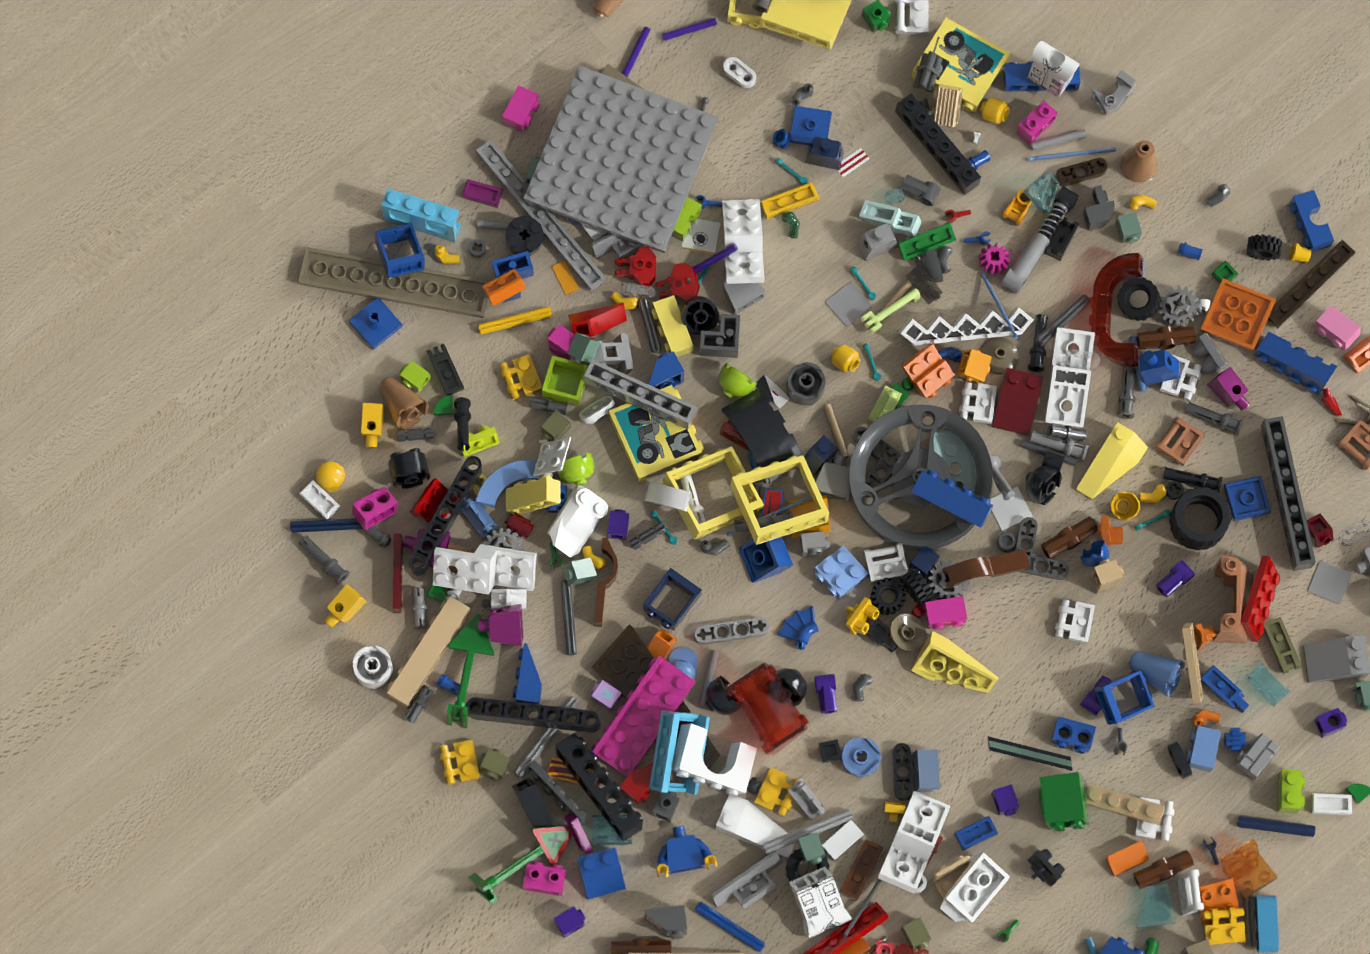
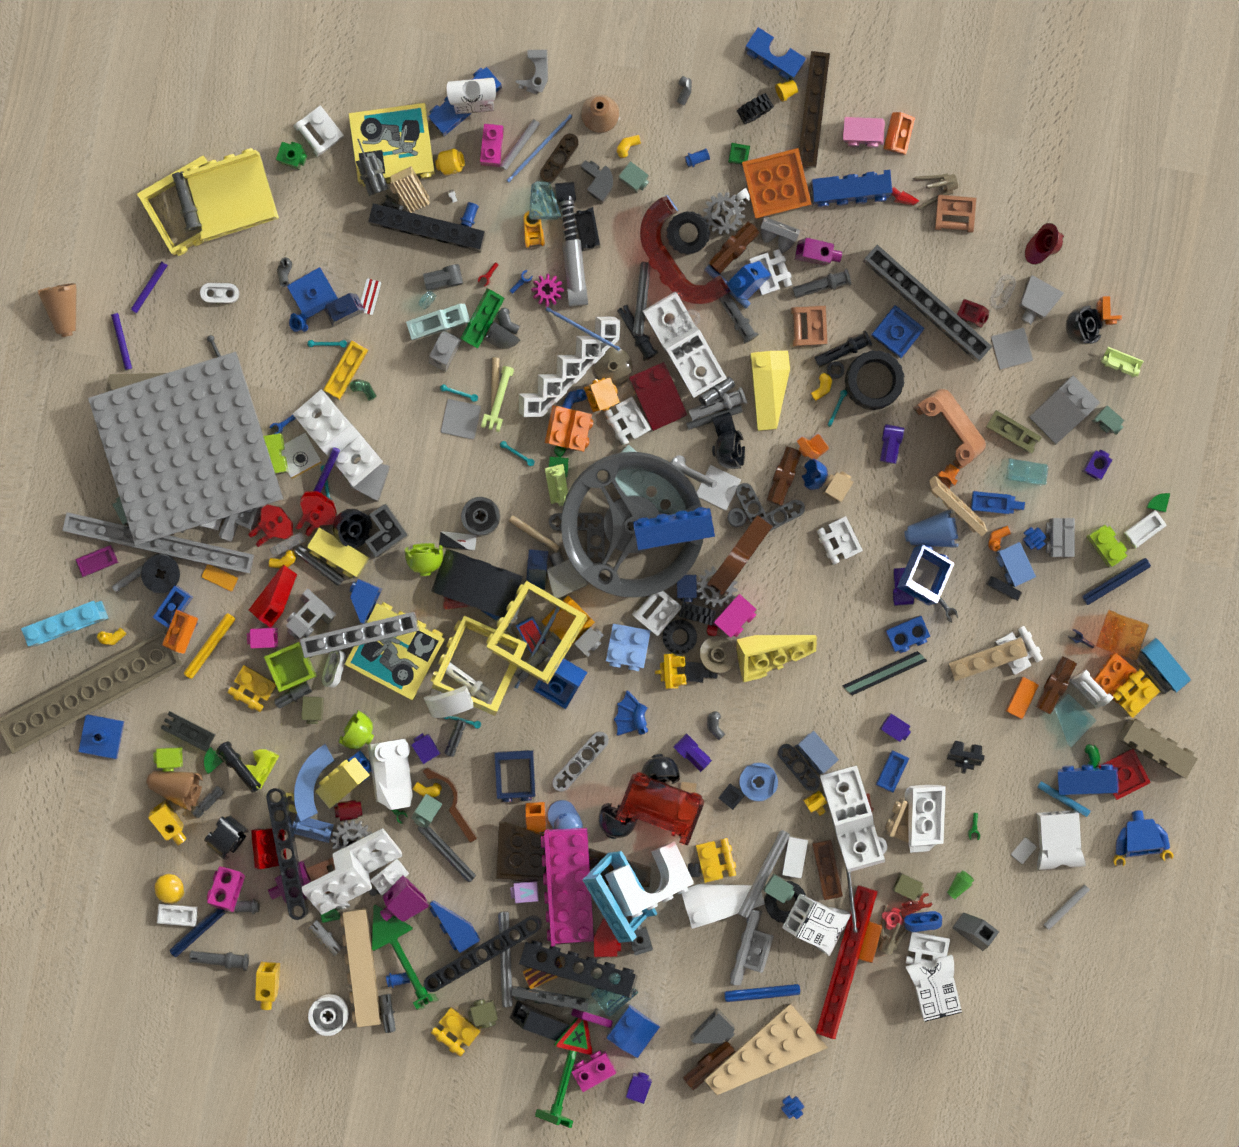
camera: 30 degrees left, 15 degrees up
(397, 573) = (286, 924): dark red tile -> none
(404, 264) = (87, 673): blue window -> none
(479, 243) = (133, 615): dark grey bush -> none
(521, 108) = (70, 467): dark pink brick -> none
(551, 457) = (330, 738): white hinge -> none
(583, 348) = (285, 633): sand green brick -> none
(683, 854) = (683, 967): blue torso -> none
(709, 677) = (592, 811): light grey bar -> none
(714, 549) = (515, 706): dark grey arm -> none
(806, 799) = (743, 849): light grey hinge -> none
(845, 358) = (495, 469): yellow head -> none
(924, 284) = (509, 357): clear smoke hinge -> none
(1063, 801) = (942, 696): green brick -> none
(1124, 506) = (807, 416): yellow hair -> none
(1260, 598) = (971, 411): red plate -> none

